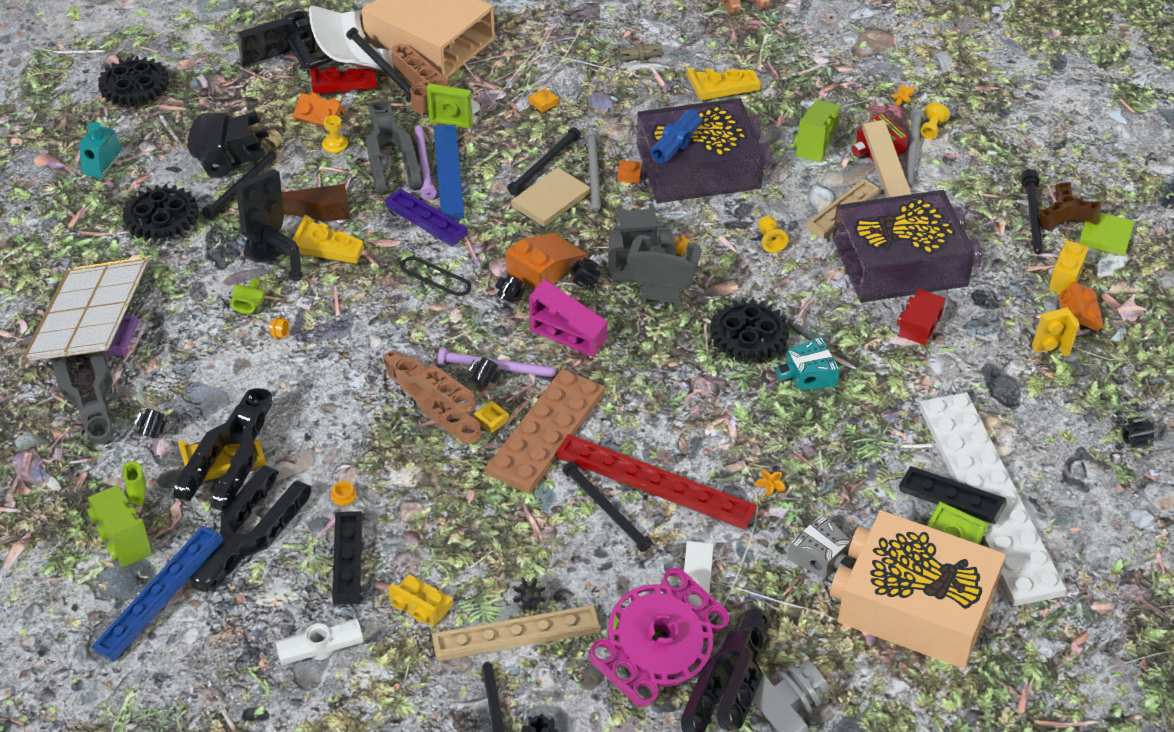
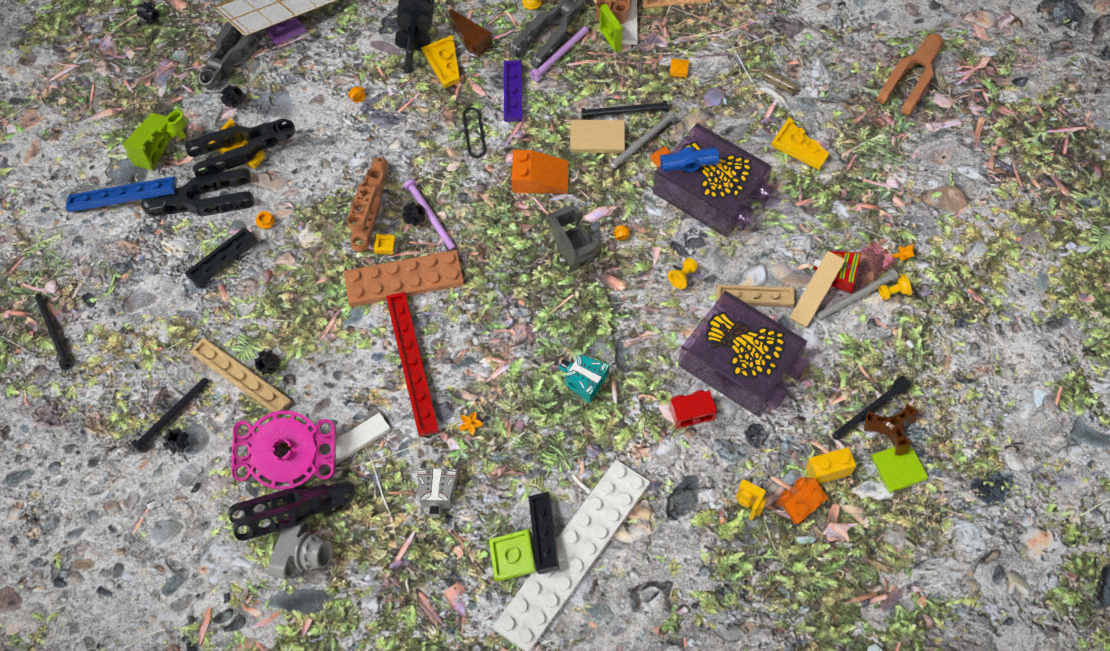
camera: 50 degrees right, 15 degrees up
(247, 298) = (365, 61): lime piece -> none
(308, 644) = (159, 293): white piece -> none
(420, 600) = (222, 314): yellow bracket -> none
(448, 171) = (564, 71): blue tile -> none
(510, 288) = (493, 175): black gear -> none
(565, 319) = (492, 222): dark pink wedge -> none
(571, 470) = (382, 314): black bar -> none
(585, 272) = (544, 202): black gear -> none
(627, 228) = (598, 210): dark grey piece -> none
(749, 331) = (580, 338): black gear -> none
(817, 130) = (809, 228): lime wedge -> none
(917, 587) = (443, 565): light nougat brick -> none
(1138, 432) = (710, 609): black gear -> none

